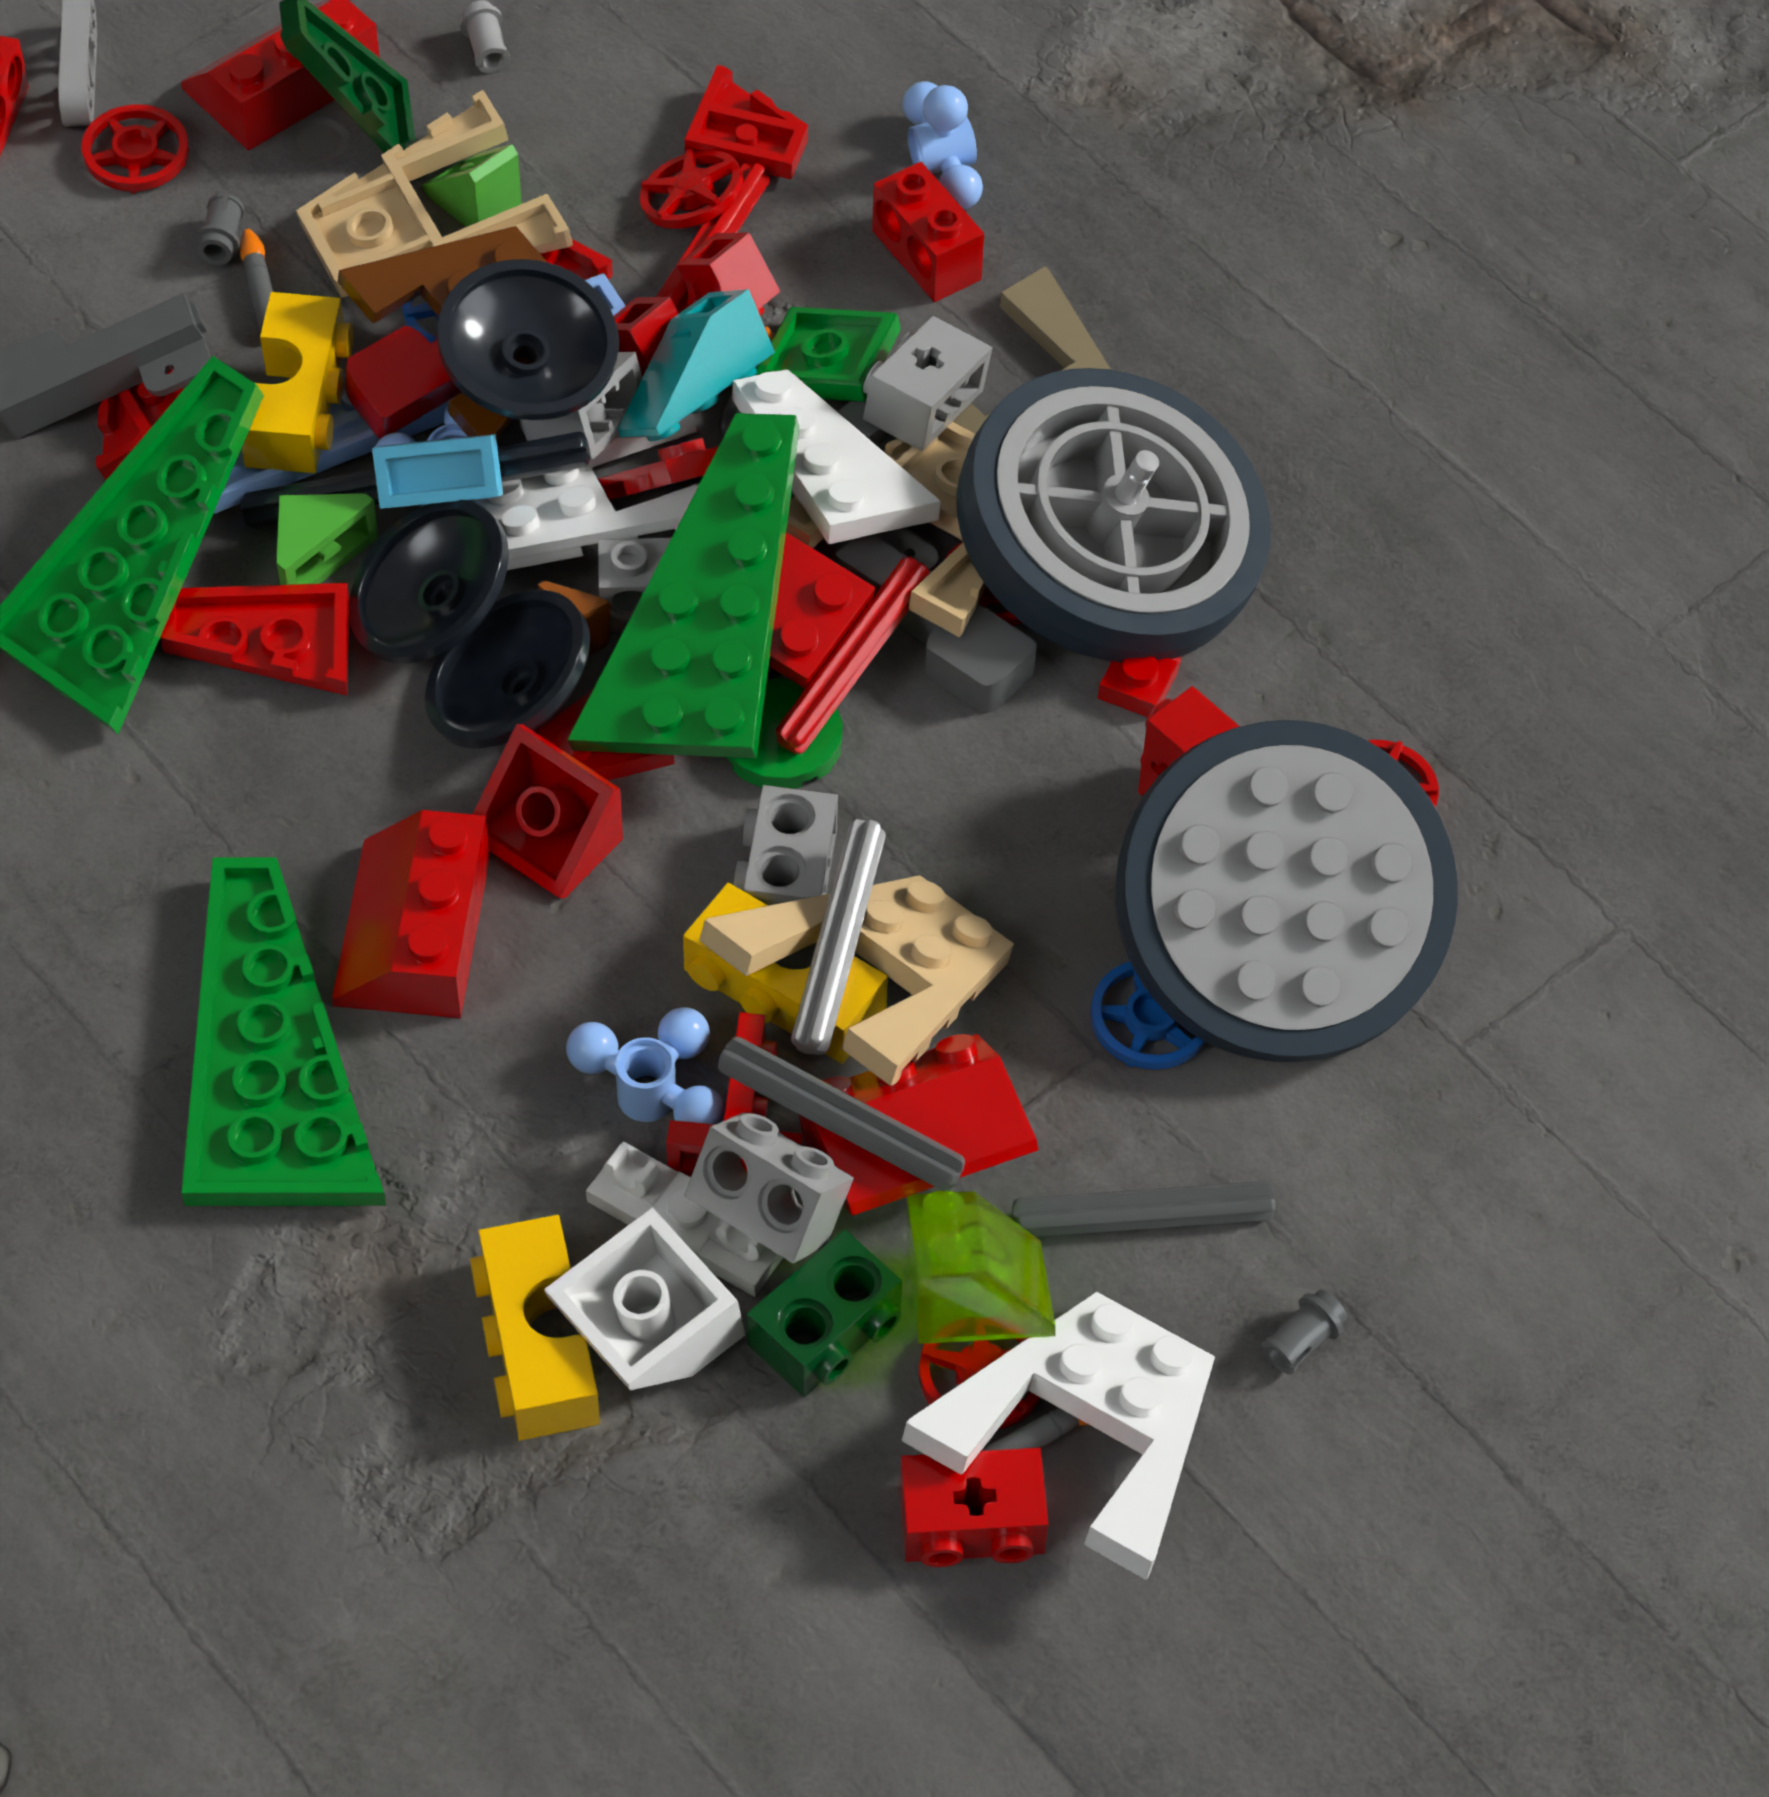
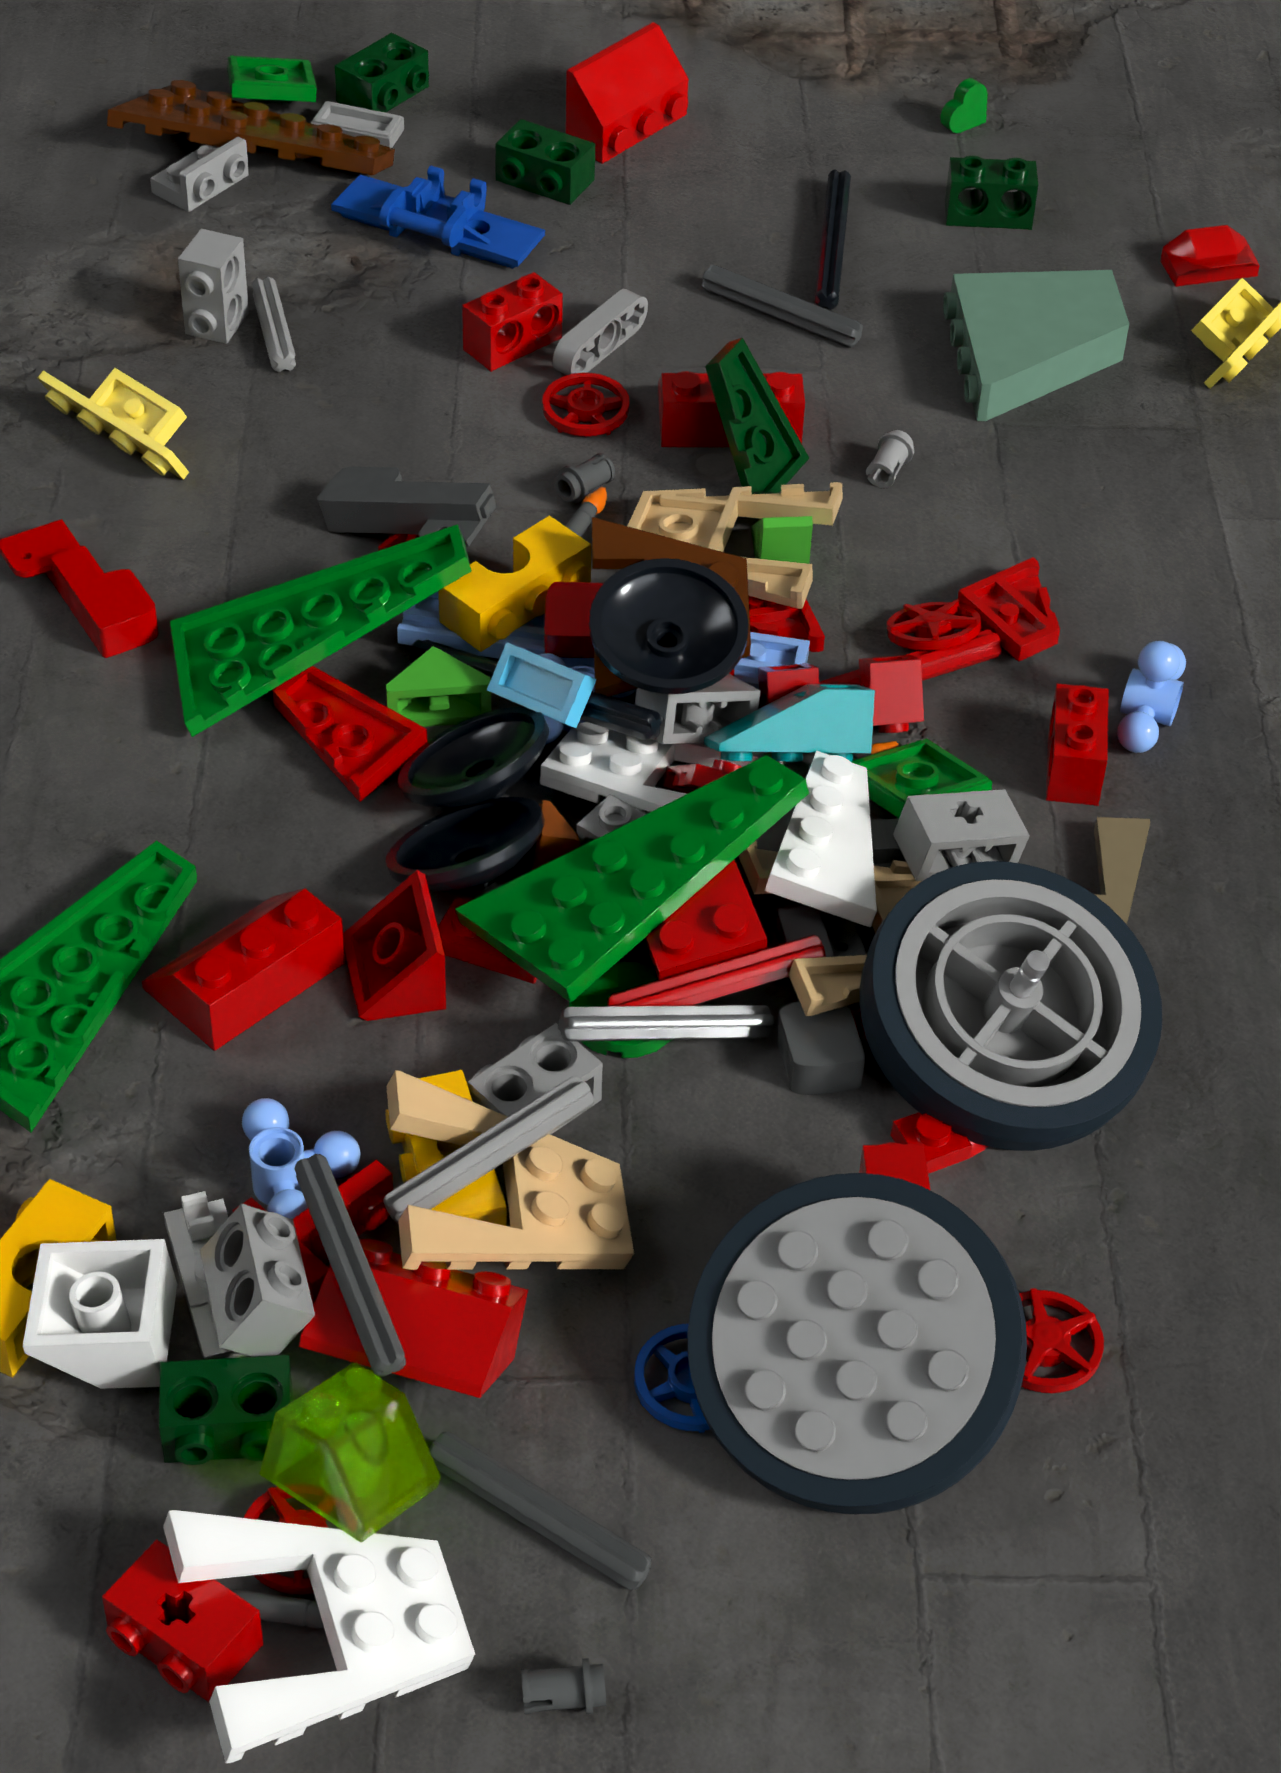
camera: 40 degrees right, 10 degrees down
(845, 723) = (665, 1022): none -> axle

